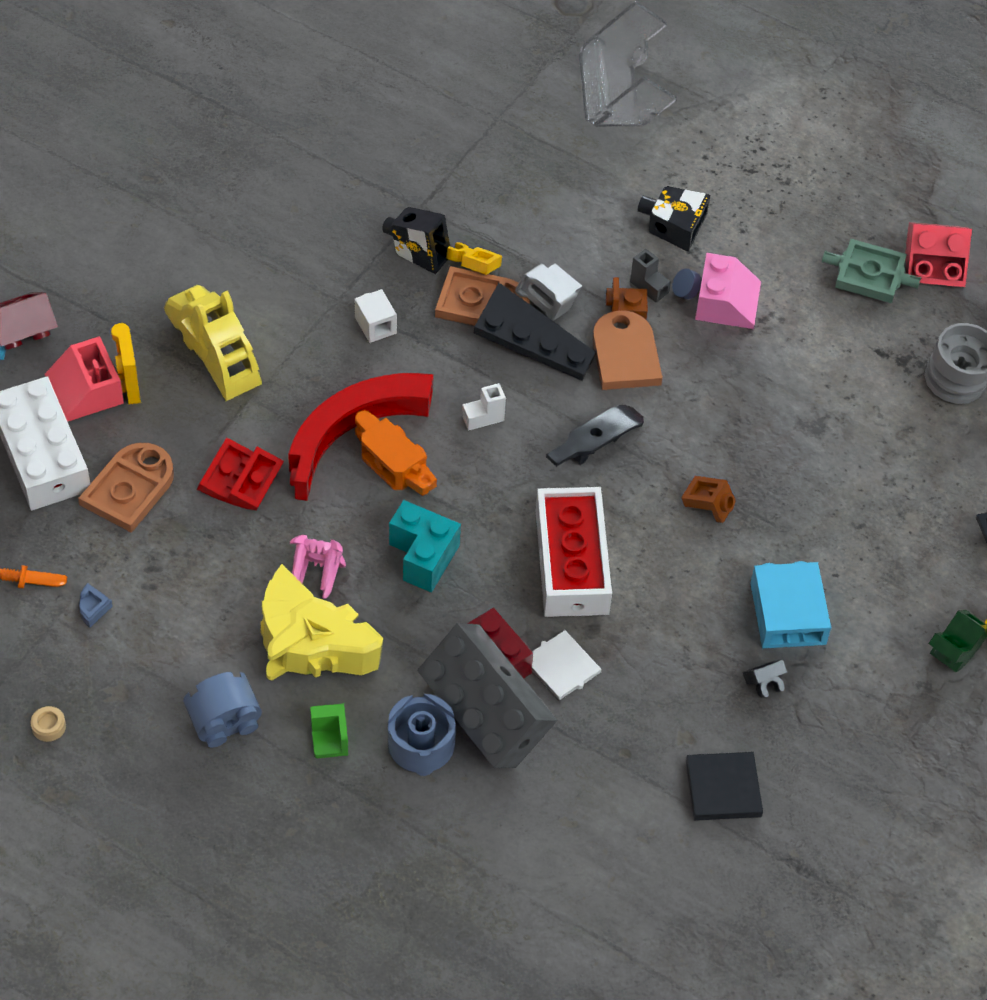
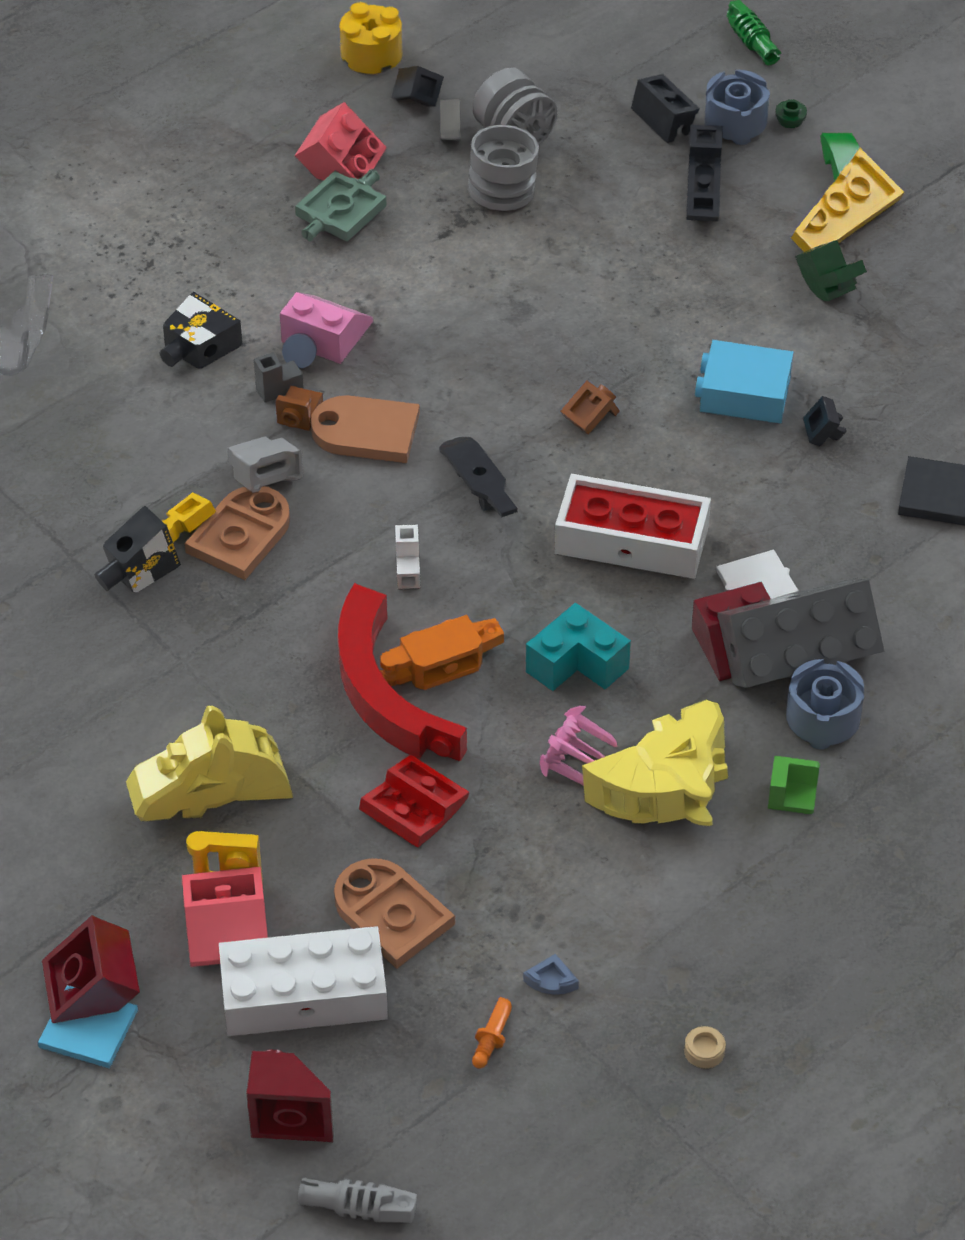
camera: 70 degrees left, 5 degrees down
(223, 708) = (749, 864): sand blue brick -> none
(375, 316) = (232, 624): white brick -> none
(527, 331) = (313, 497): black wing -> none

